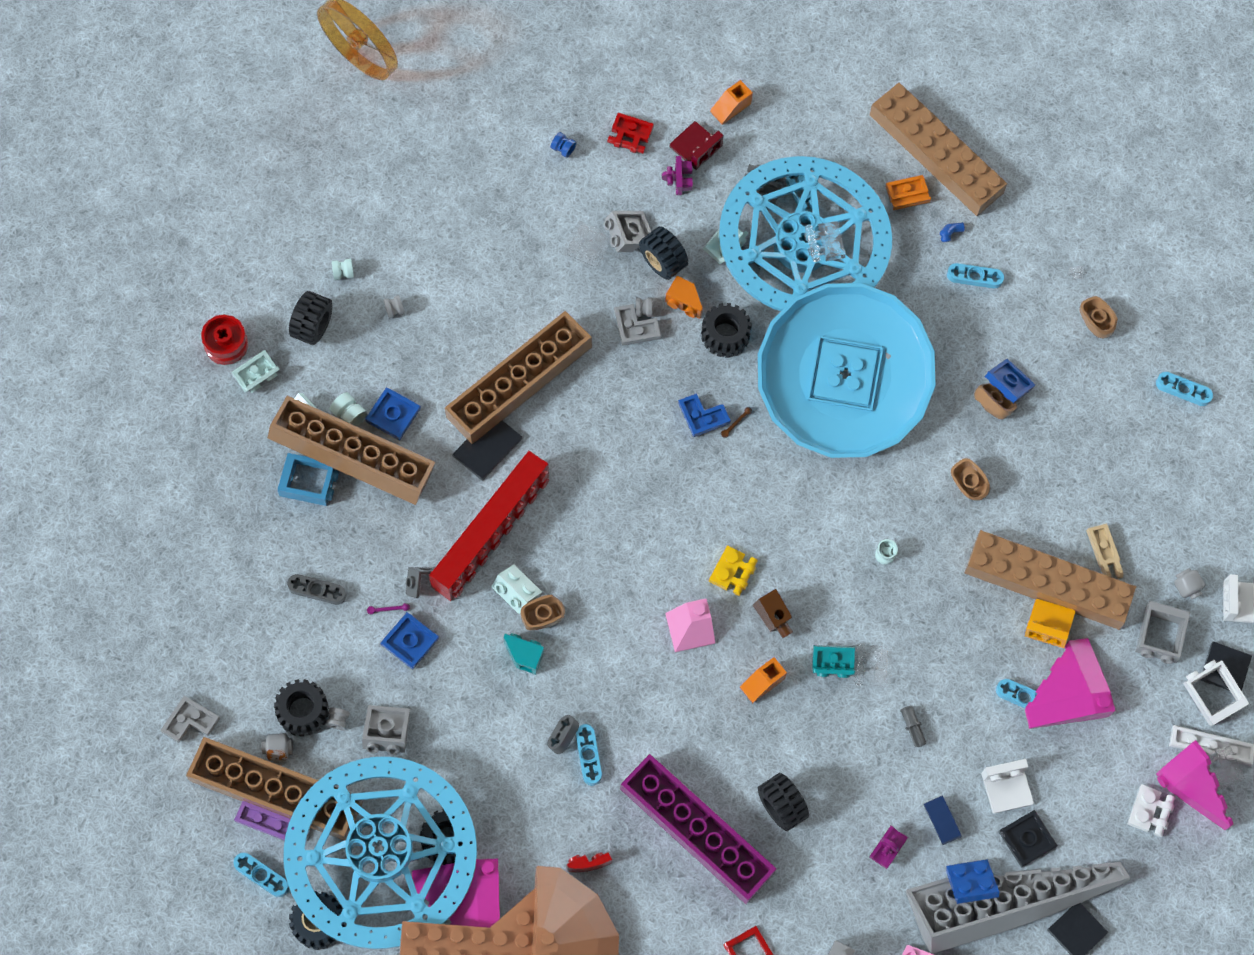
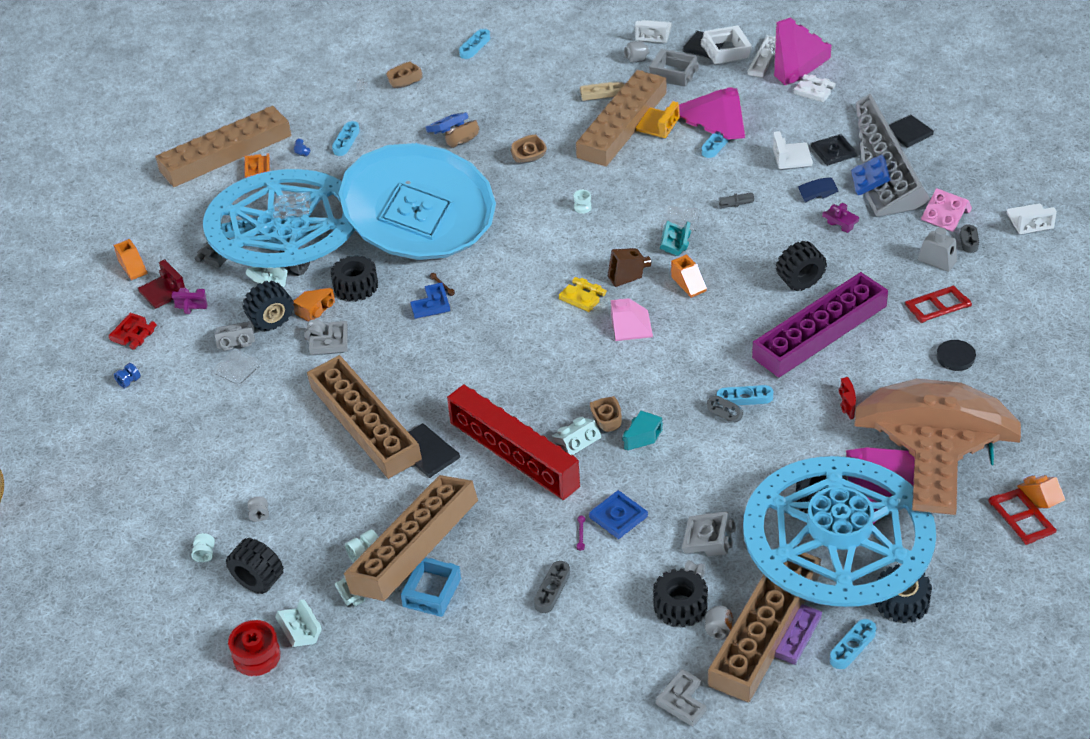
camera: 75 degrees left, 25 degrees down
(393, 413) = (373, 514): blue plate -> none
(414, 580) = (558, 504): dark grey bracket -> none

